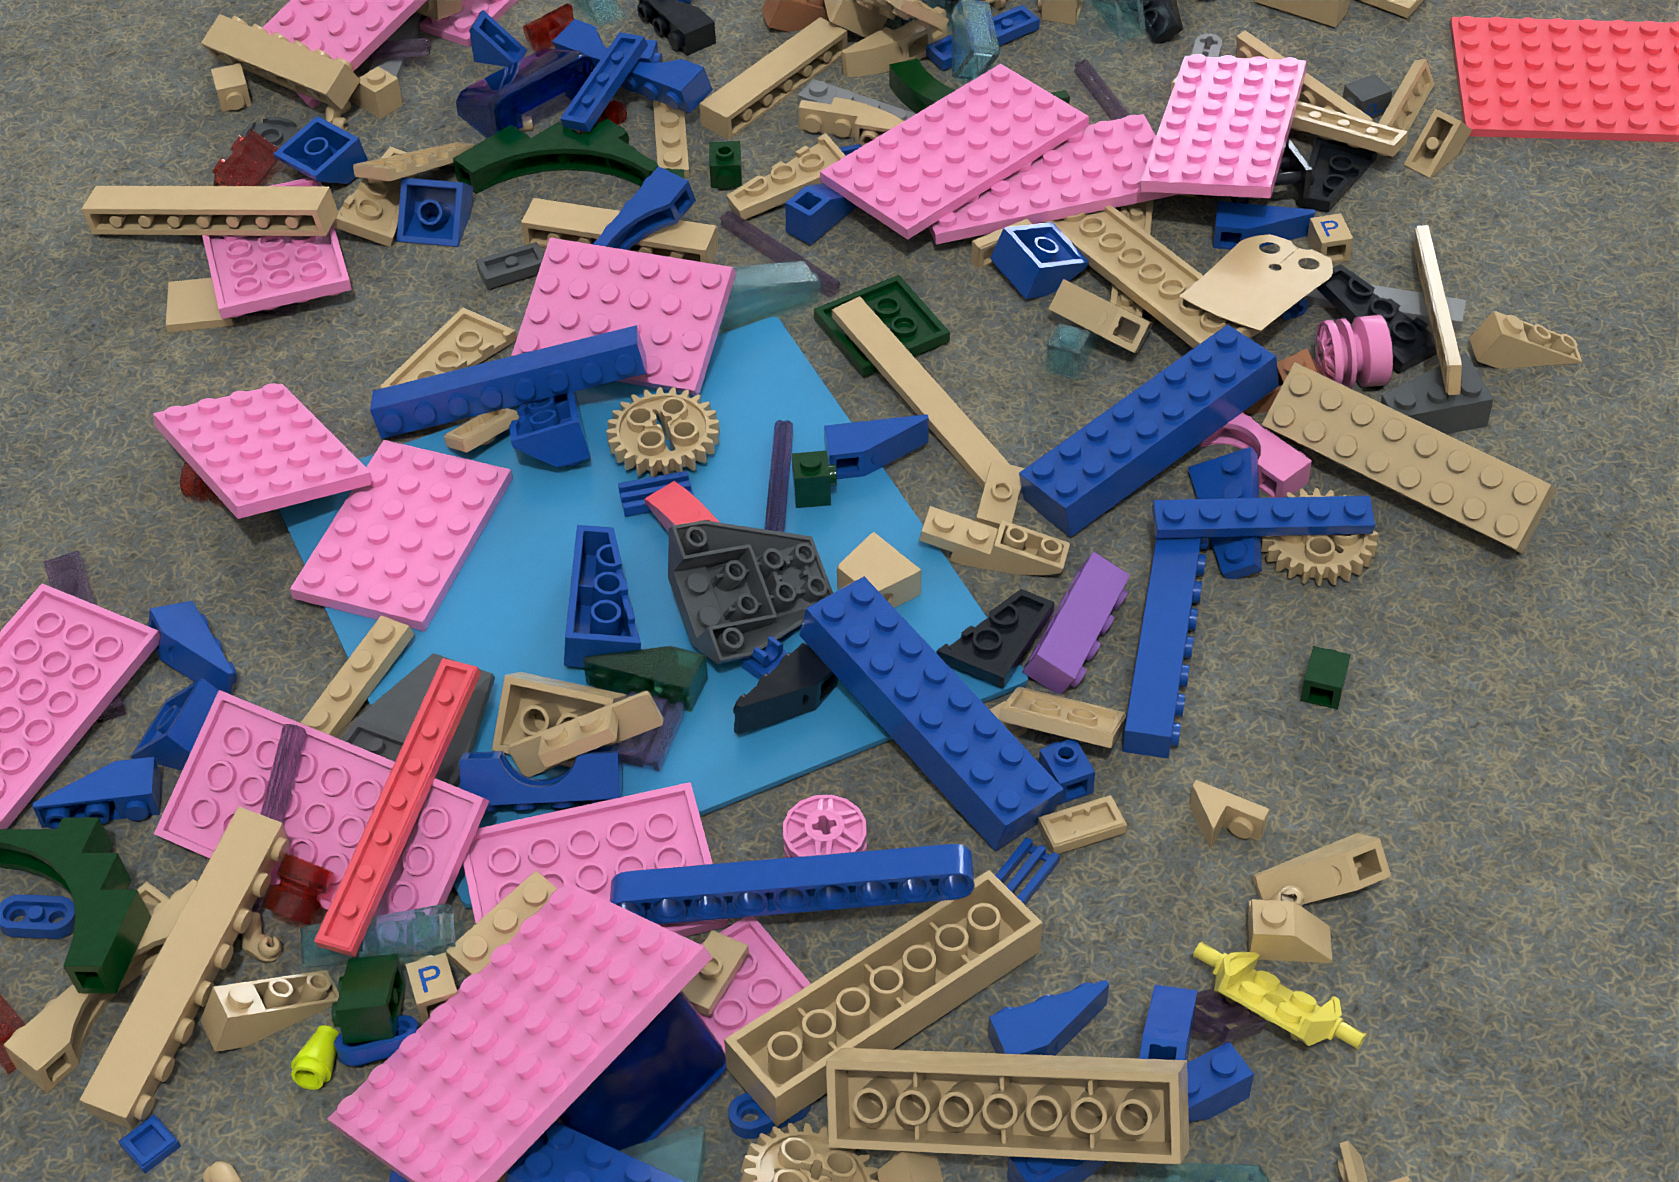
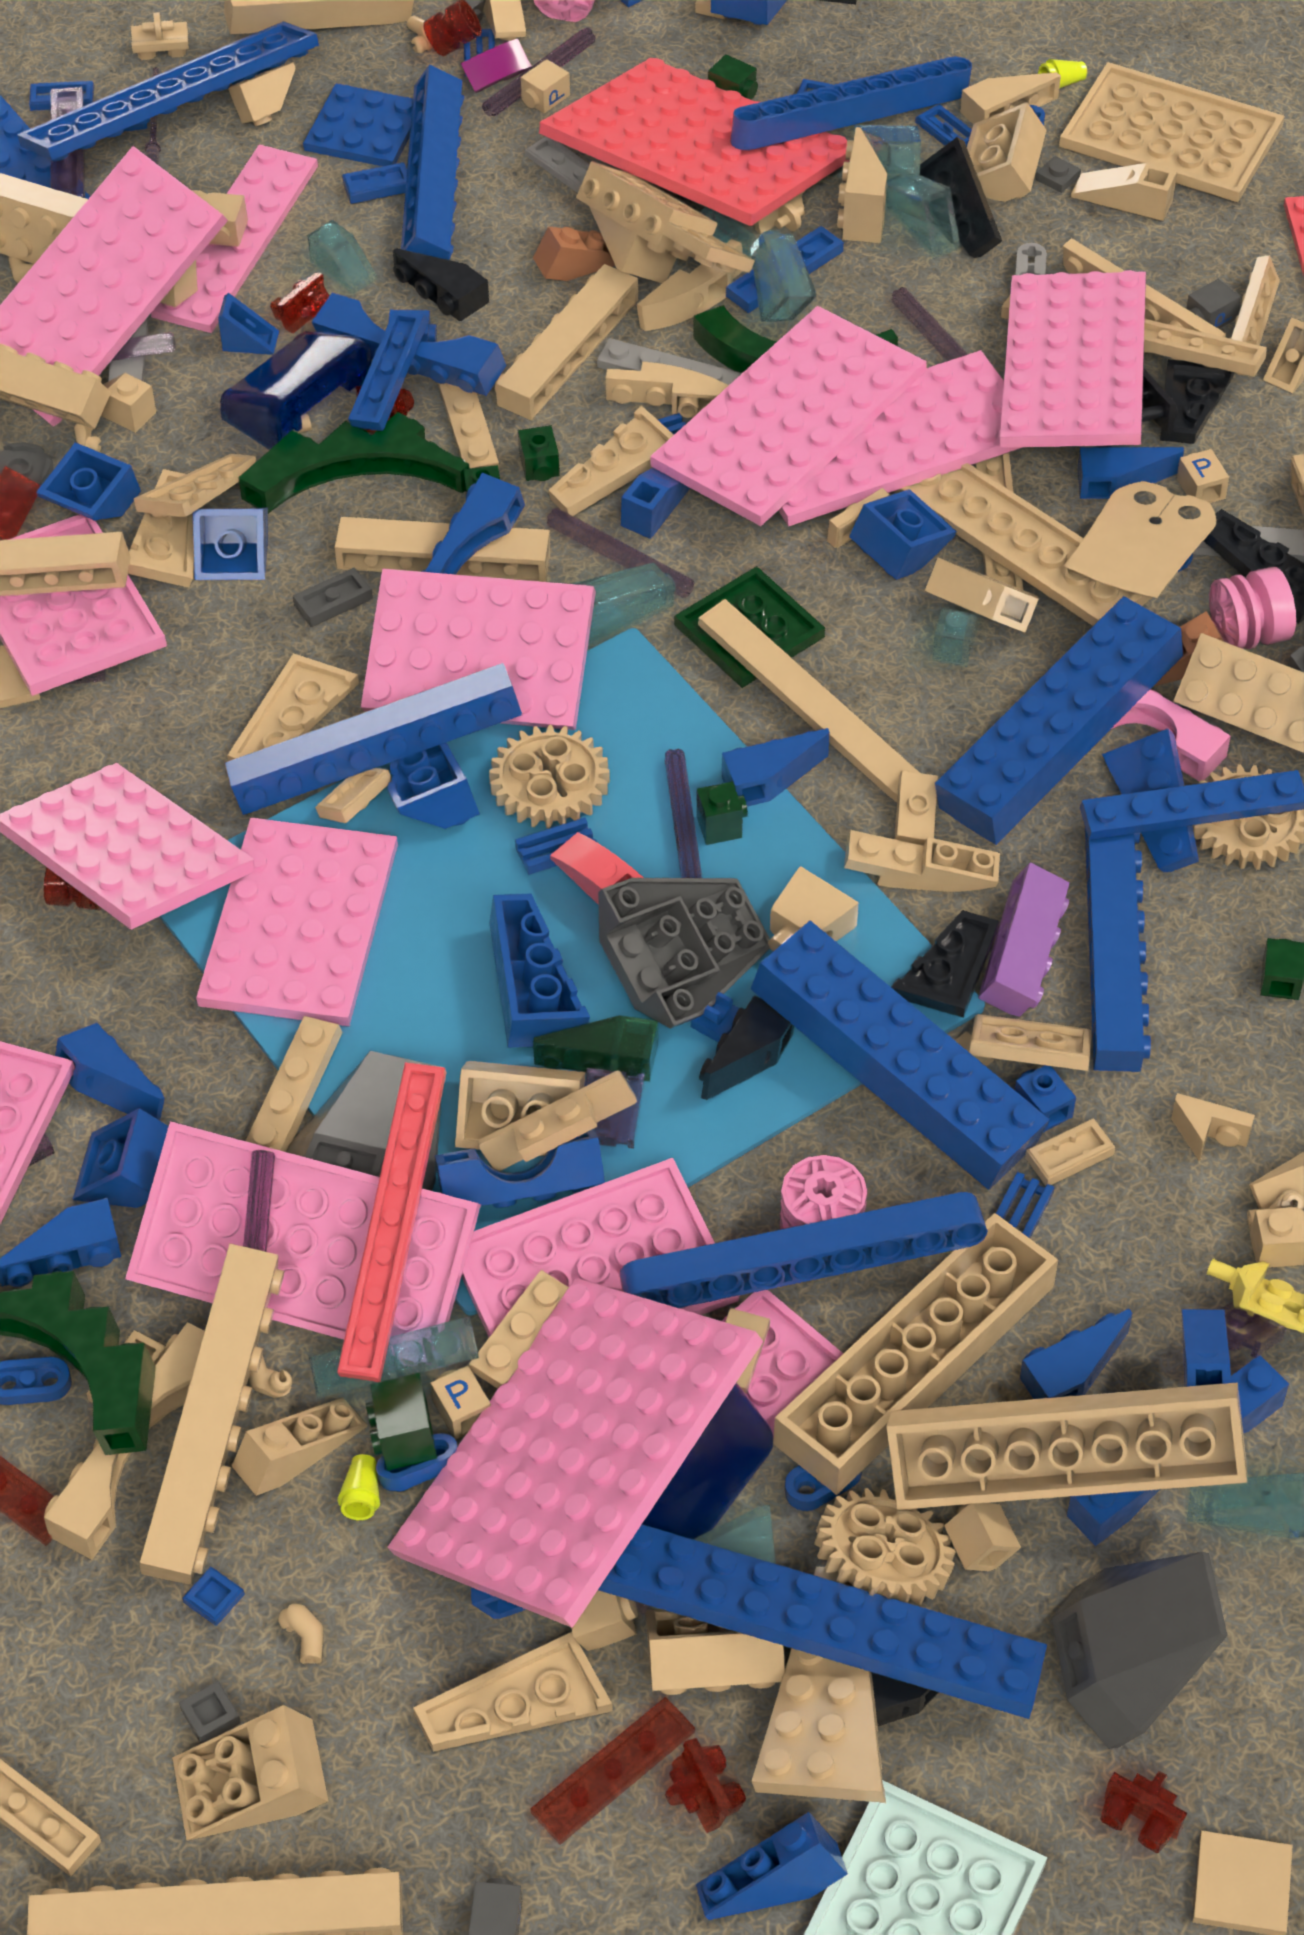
camera: 10 degrees left, 5 degrees up
(298, 889) = (300, 1319): clear red wheel -> none

